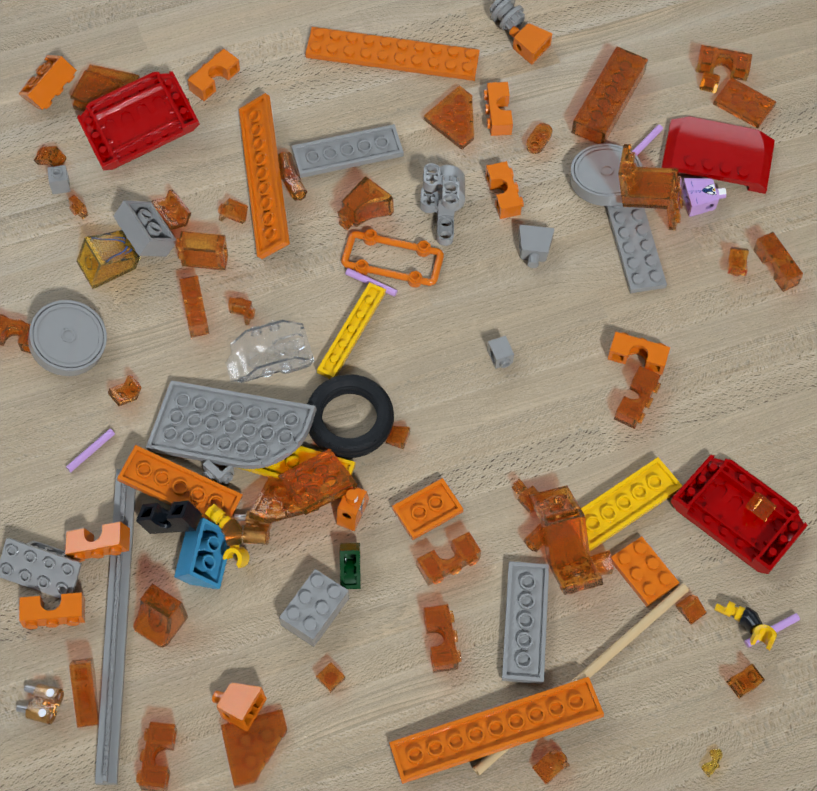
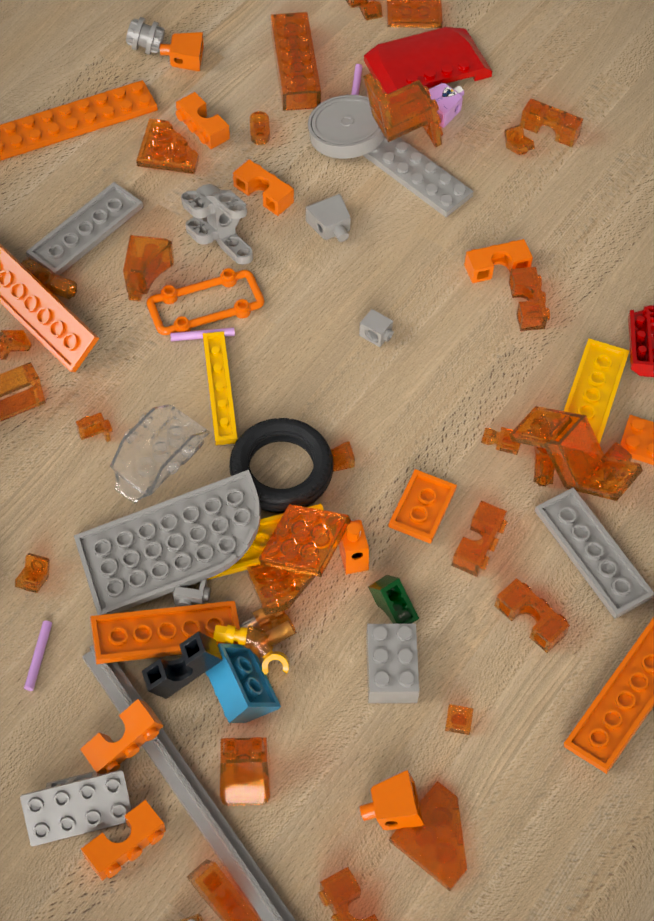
camera: 35 degrees left, 5 degrees down
(194, 306) = (34, 442): clear orange arch -> none

